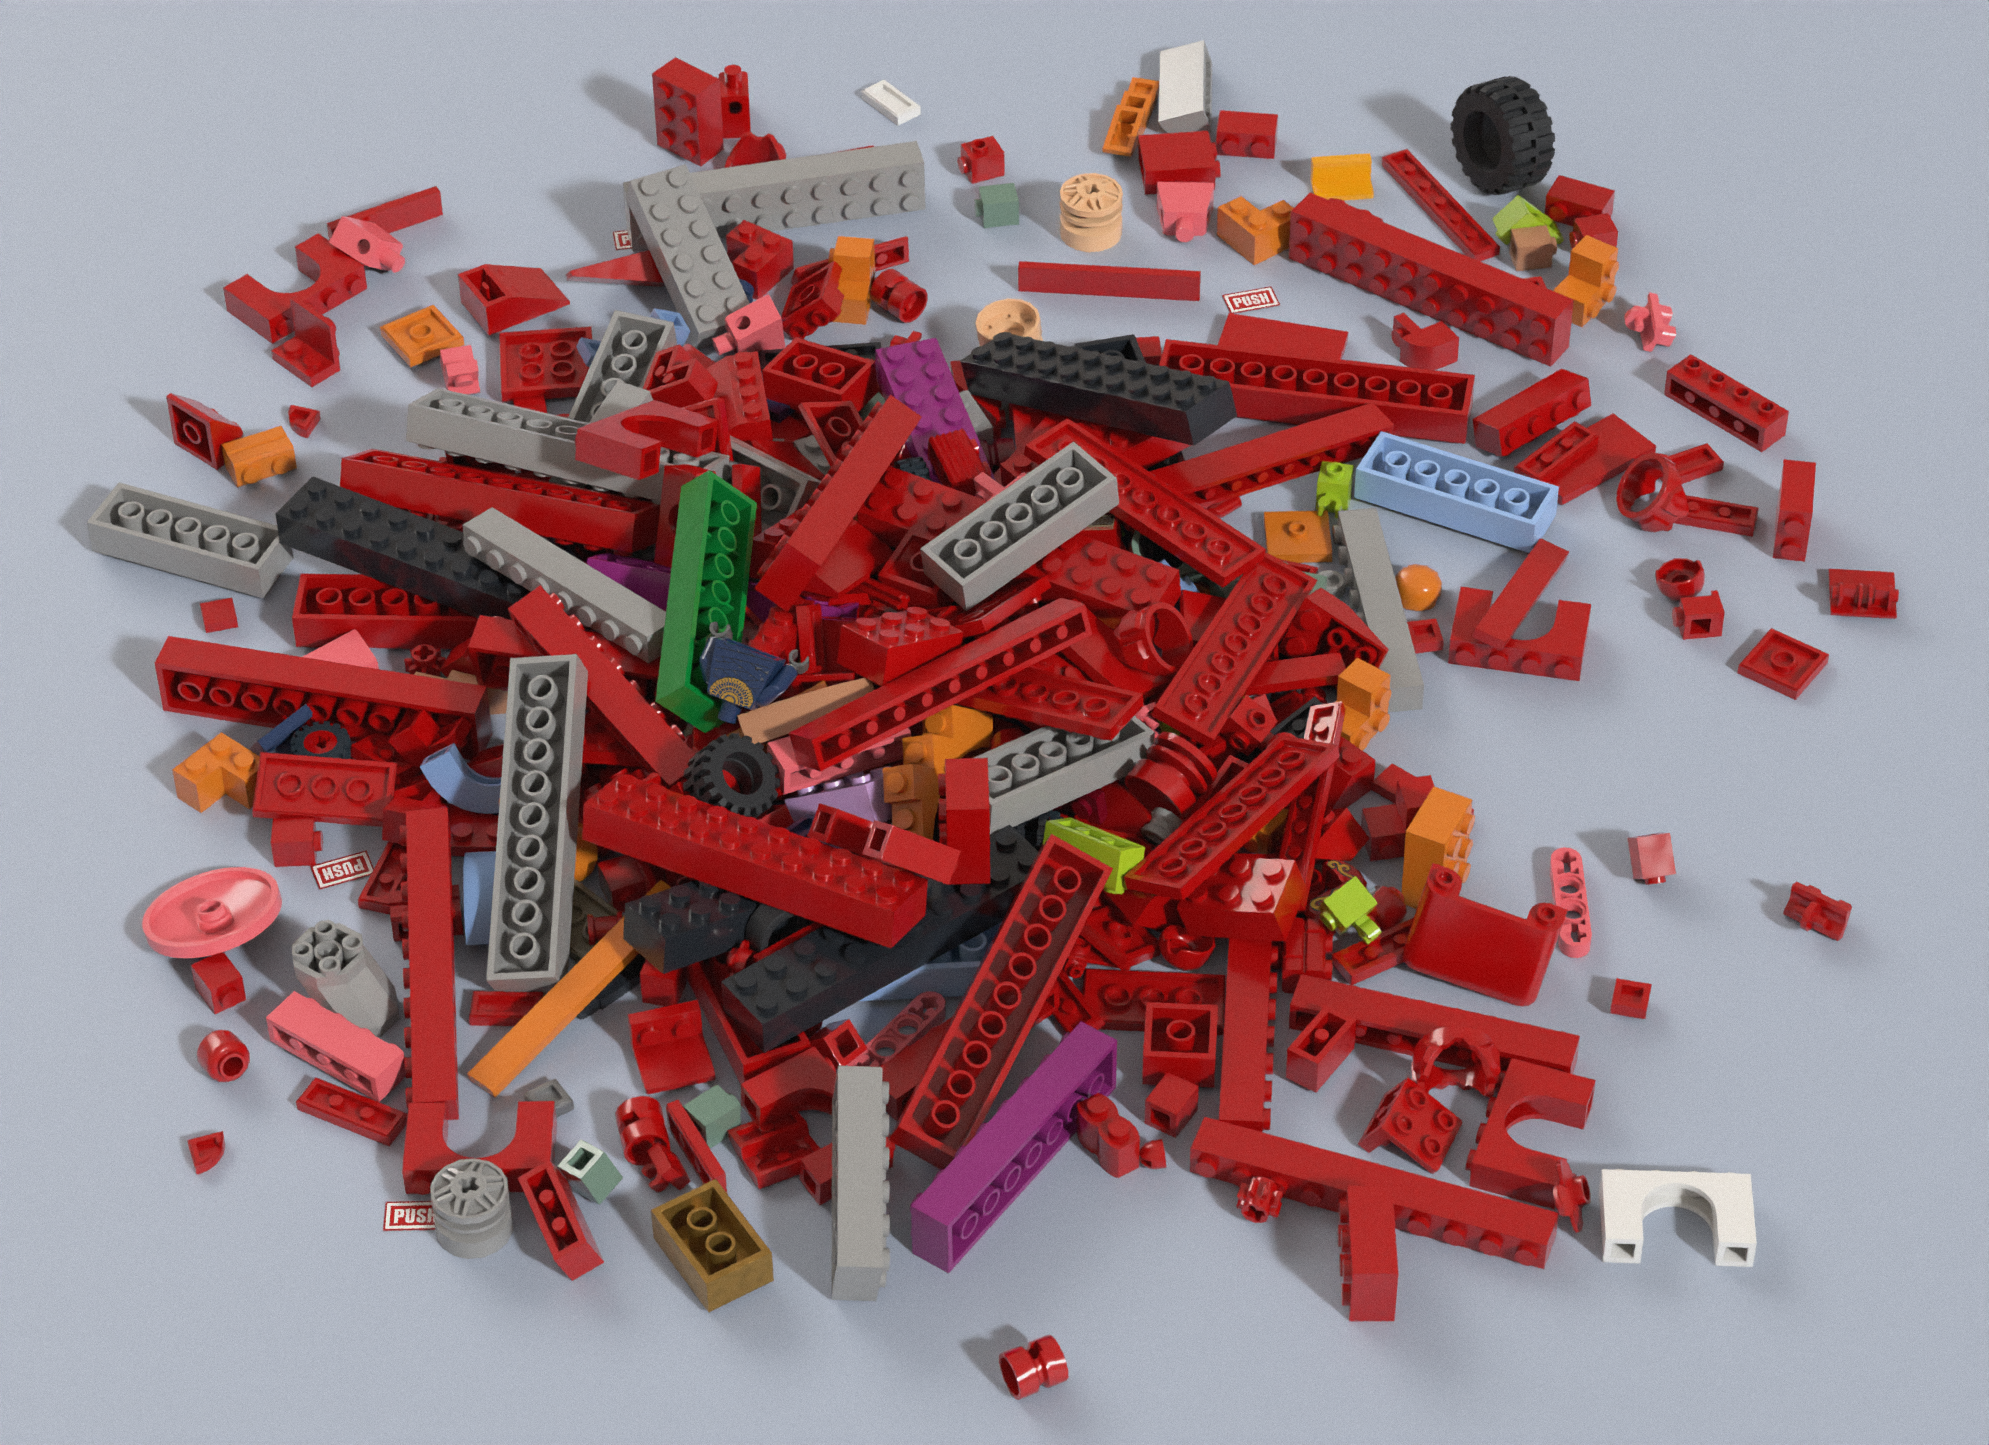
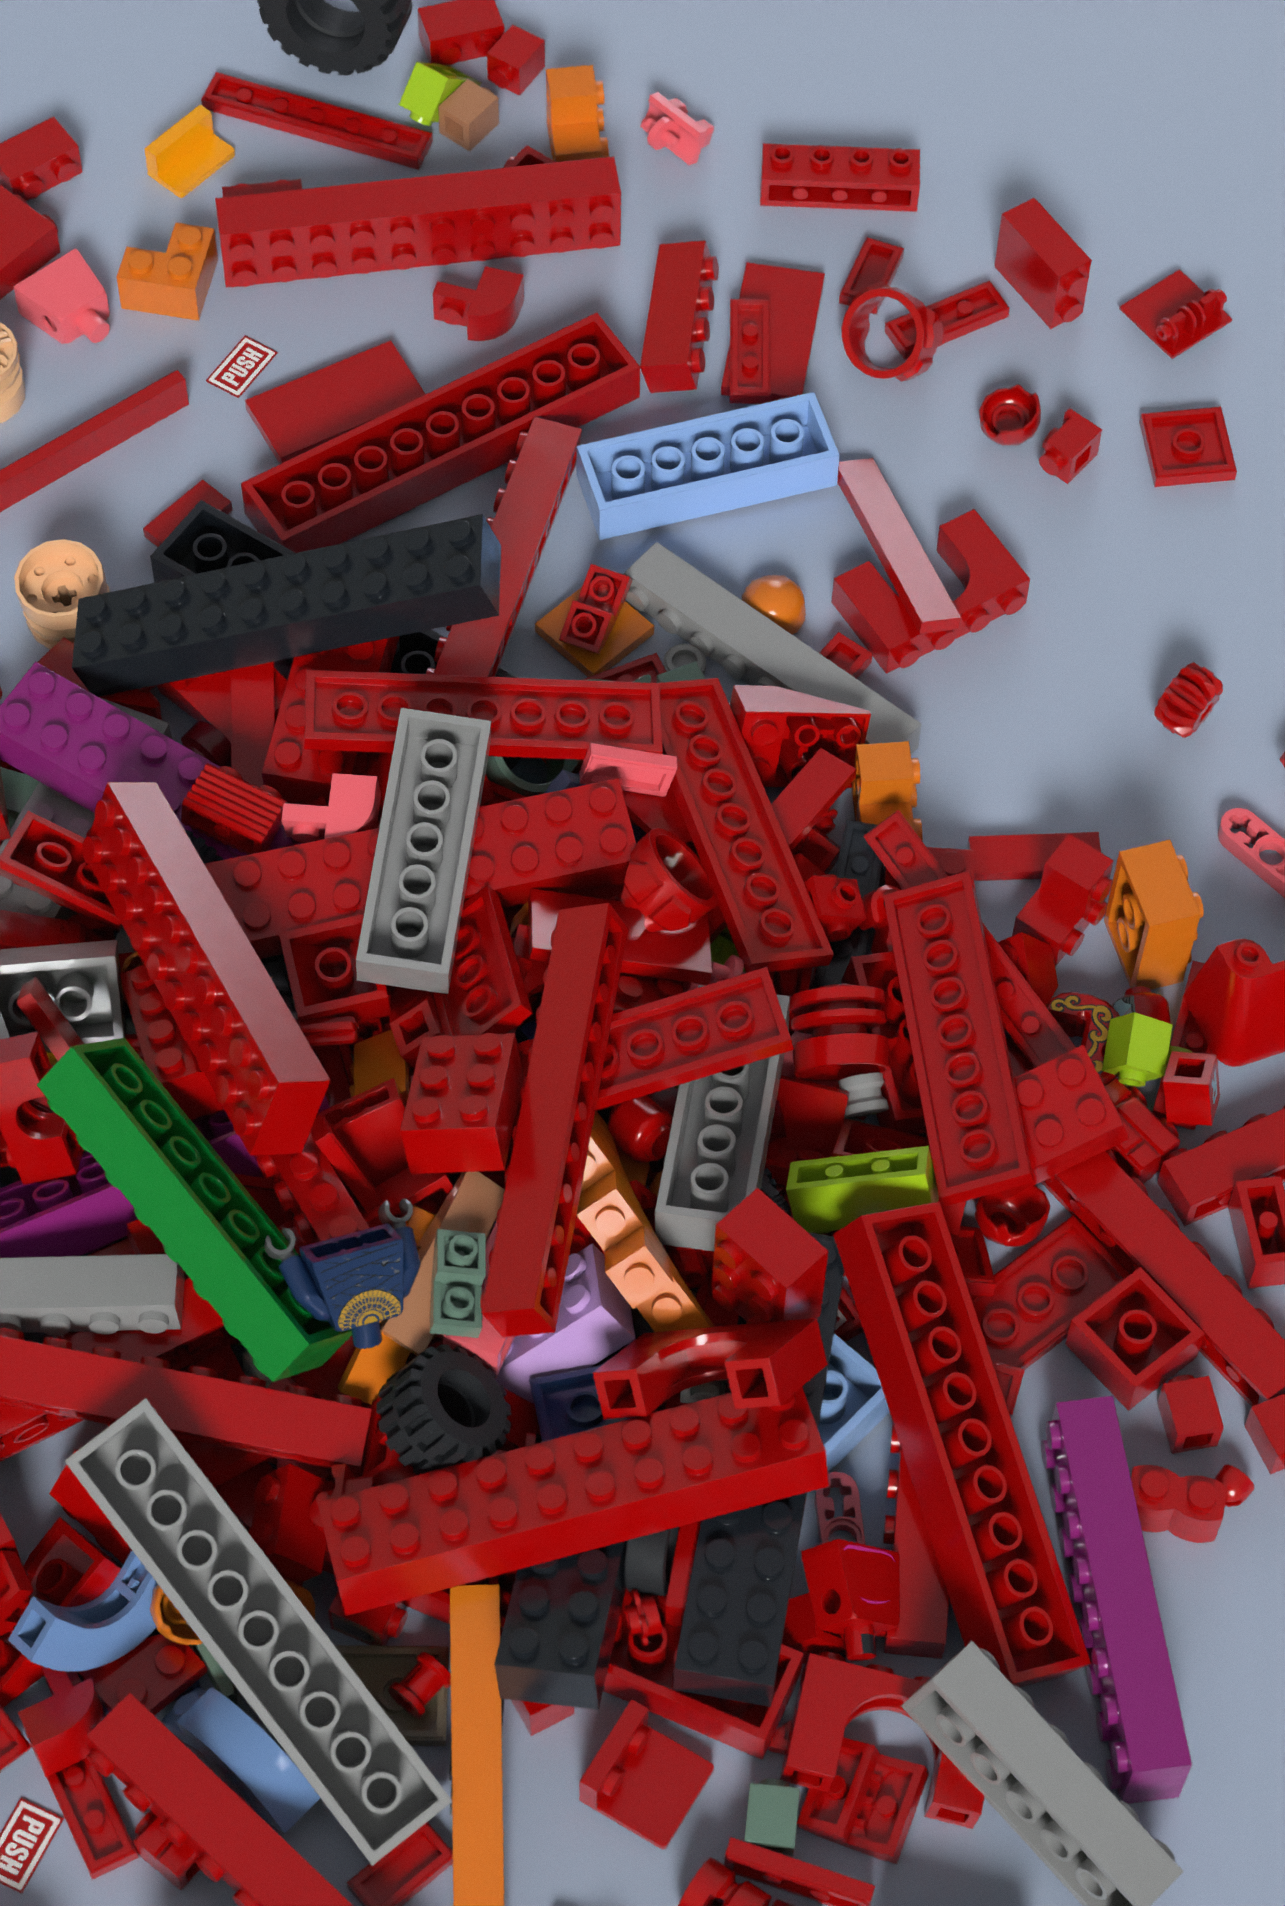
camera: 45 degrees left, 15 degrees up
(799, 711) = (457, 1283): none -> sand green slope
(871, 1032) = (854, 1592): none -> red torso
(1200, 579) = (636, 769): none -> coral tile
(1291, 525) = (596, 609): none -> red slope
(1334, 487) = (579, 542): lime brick -> none
(1355, 945) = (1191, 1088): none -> red brick
(1608, 776) = (1188, 700): none -> red gear

